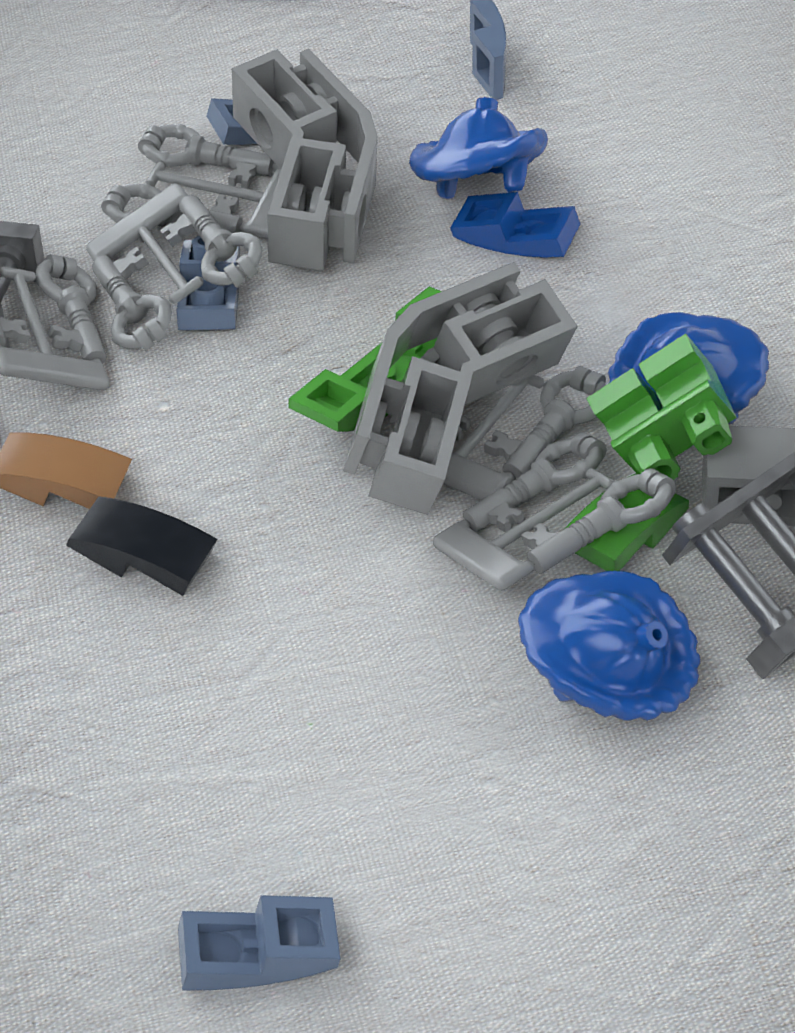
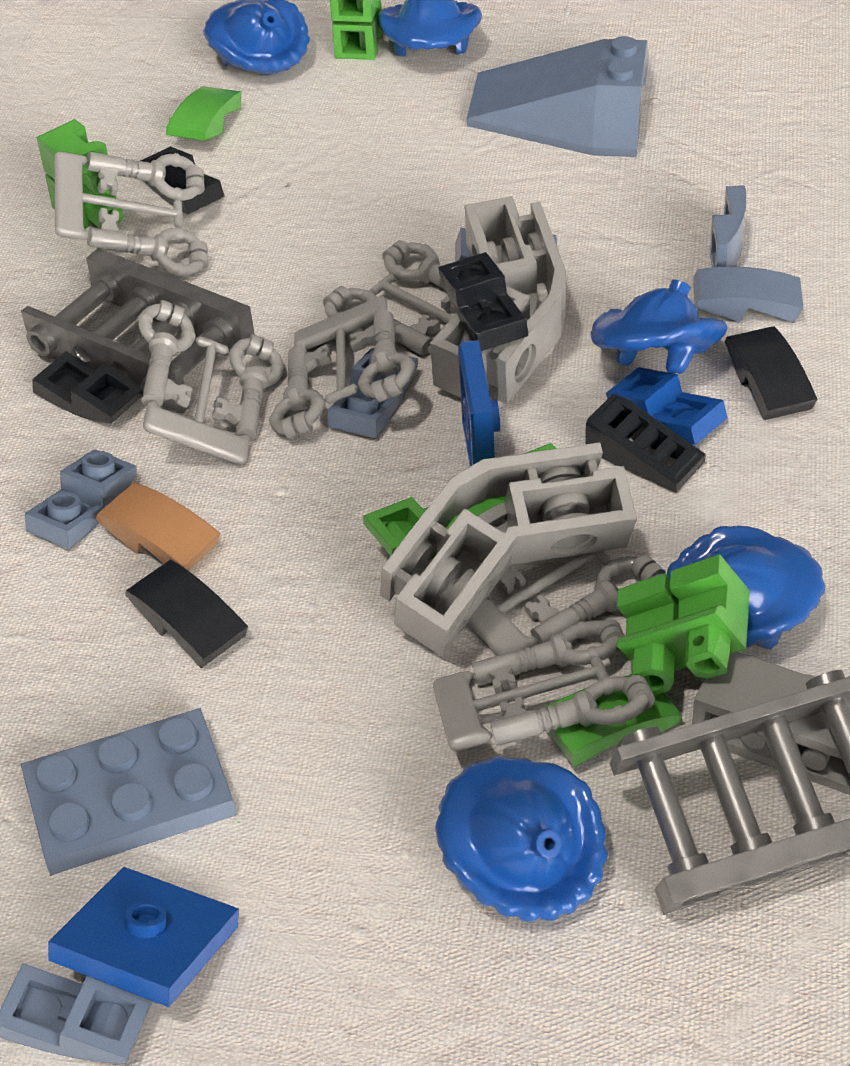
camera: 25 degrees right, 0 degrees up
(180, 728) = (126, 791): none -> sand blue plate
(293, 846) = (144, 936): none -> blue plate
(300, 157) = (482, 301): none -> black slope
(349, 274) = (478, 411): none -> blue plate
(489, 249) = (622, 420): none -> black slope
(532, 97) = (735, 289): none -> sand blue slope
(603, 168) = (772, 371): none -> black slope

